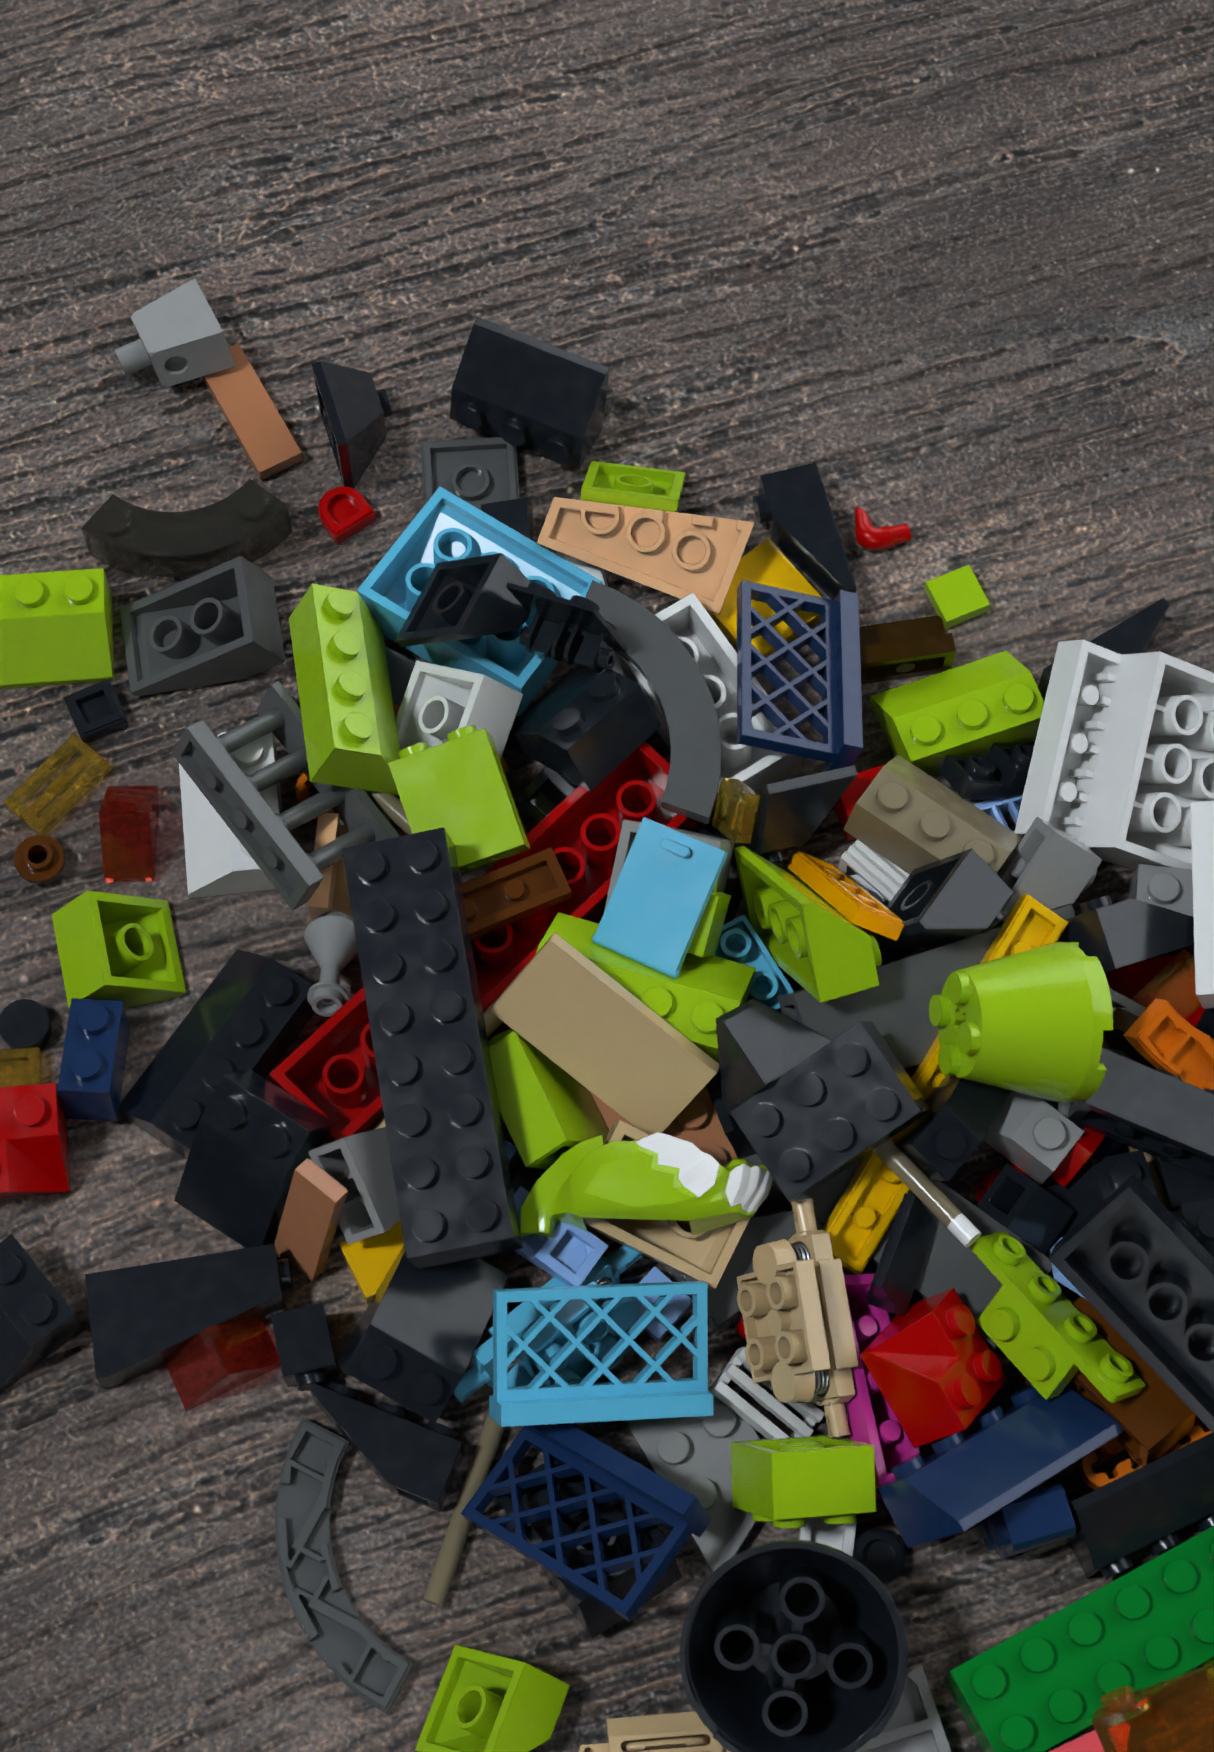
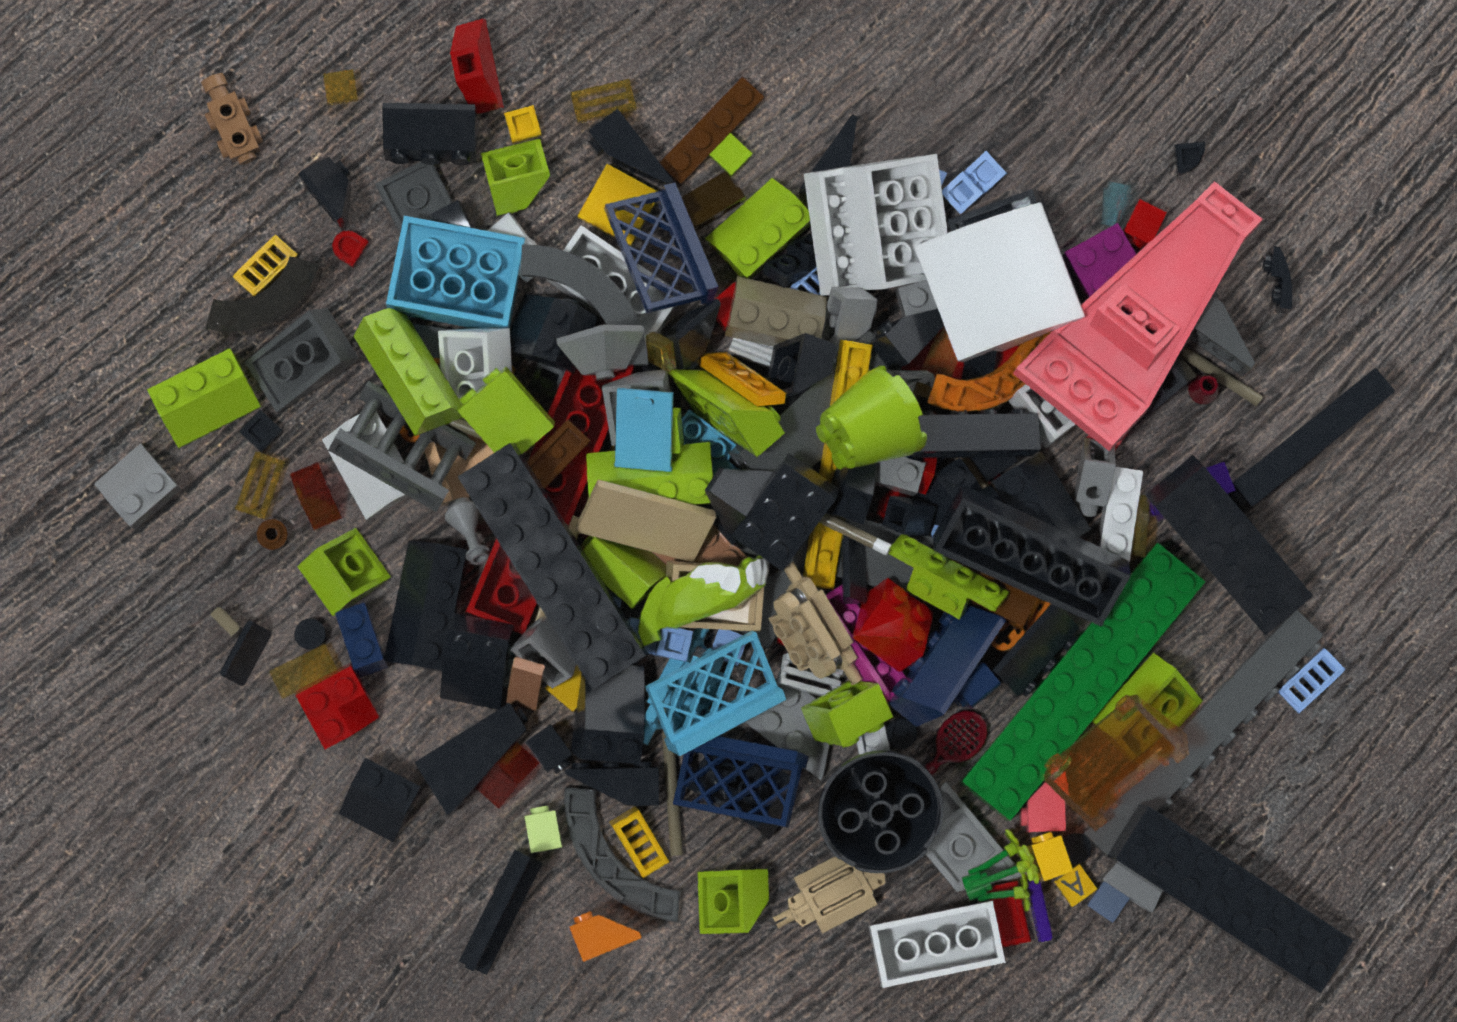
camera: 30 degrees left, 15 degrees up
(109, 1574) = (500, 912): none -> black fence
(177, 338) = (200, 178): light grey torso -> none
(190, 482) = (257, 258): none -> yellow slope
(237, 1470) = (543, 830): none -> yellowish green brick
(247, 1678) = (600, 935): none -> orange slope
(253, 417) = (263, 204): nougat tile -> none
(257, 282) = (233, 124): none -> medium nougat brick
(391, 1602) = (624, 819): none -> yellow slope
(431, 302) = (340, 87): none -> clear yellow tile
(465, 602) = (456, 291): black slope -> none
(567, 628) = (523, 287): black hinge -> none
(634, 342) = (475, 66): none -> red slope
(648, 756) = (602, 348): none -> light grey slope
(651, 546) = (544, 204): light nougat wing -> none
(669, 445) = (522, 124): none -> yellow tile
(800, 449) = (631, 106): none -> clear yellow tile
(878, 538) = (669, 136): red animal -> none
(952, 1634) = (932, 766): none -> dark red piece
(970, 541) = (711, 130): none -> reddish brown plate

